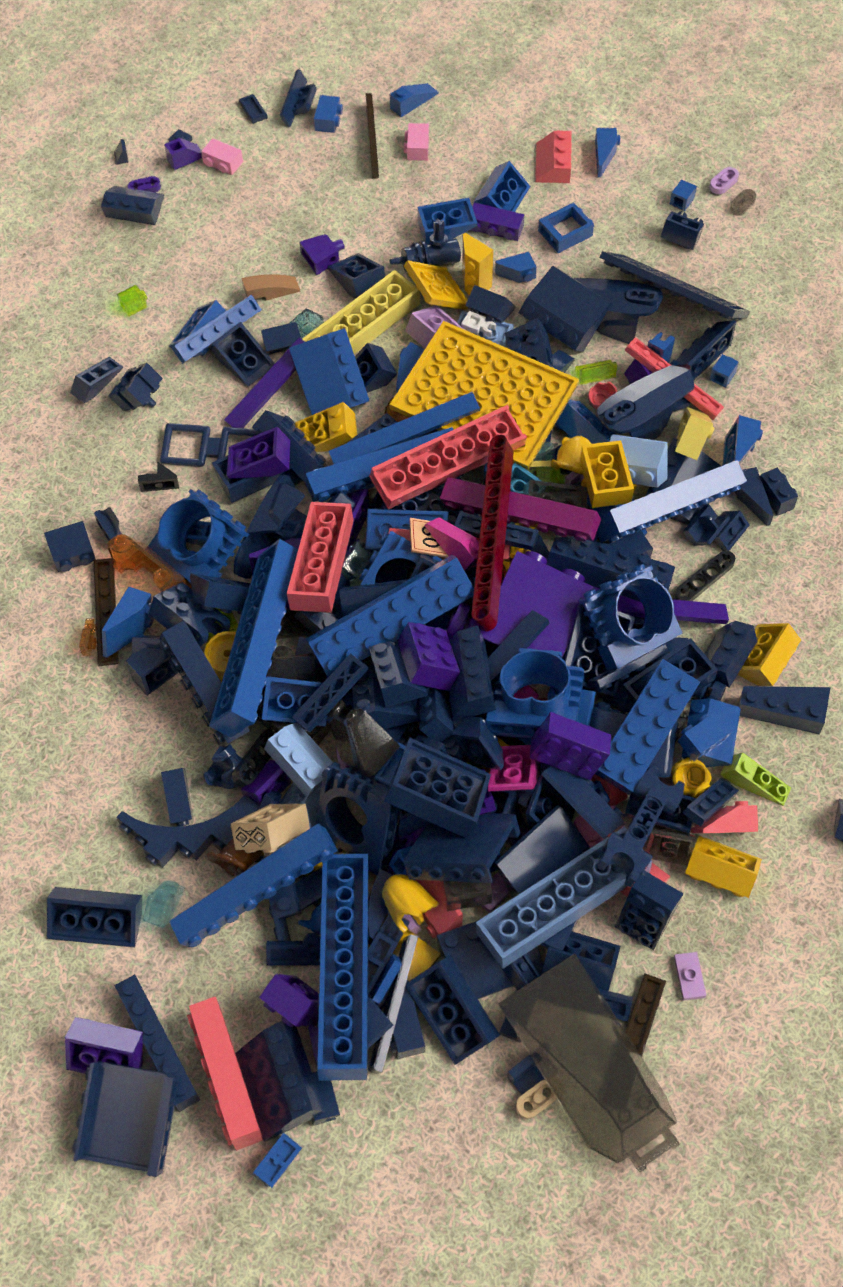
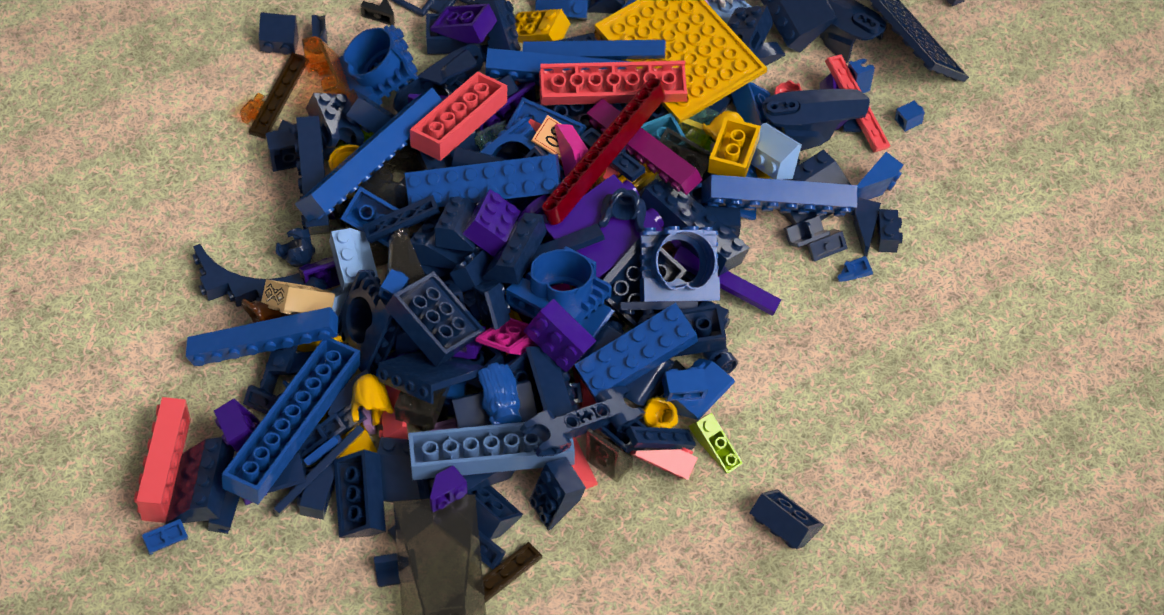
camera: 25 degrees right, 5 degrees down
(93, 916) = (135, 310): dark blue slope -> none
(97, 1041) = (85, 403): dark purple brick -> none
(126, 1117) = (74, 455): dark blue panel -> none
(127, 620) = (284, 105): blue slope -> none
(155, 1039) = (128, 418): dark blue brick -> none
(163, 903) = (191, 323): clear light blue slope -> none
(177, 796) = (249, 251): dark blue slope -> none
(259, 759) = (325, 249): black beam -> none
(377, 772) = (392, 284): none -> blue brick
(536, 1100) = (385, 588): tan plate -> none
(545, 838) = (500, 394): none -> blue hair
(547, 960) = (447, 487): none -> dark purple slope
(548, 580) = (623, 205): none -> dark blue hair
(596, 371) = (797, 72): clear neon green panel -> none
(690, 976) = (564, 561): lavender plate -> none
(693, 432) = (838, 149): light yellow wedge -> none
(703, 576) = (779, 270): black beam -> none
(707, 348) = (896, 94): dark blue slope -> none
(723, 867) = (643, 493): yellow slope -> none
(731, 649) = (757, 337): dark blue slope -> none
(770, 542) = (855, 269): none -> blue slope
(770, 654) = (791, 353): yellow slope -> none
(786, 706) = (778, 398): dark blue wedge -> none

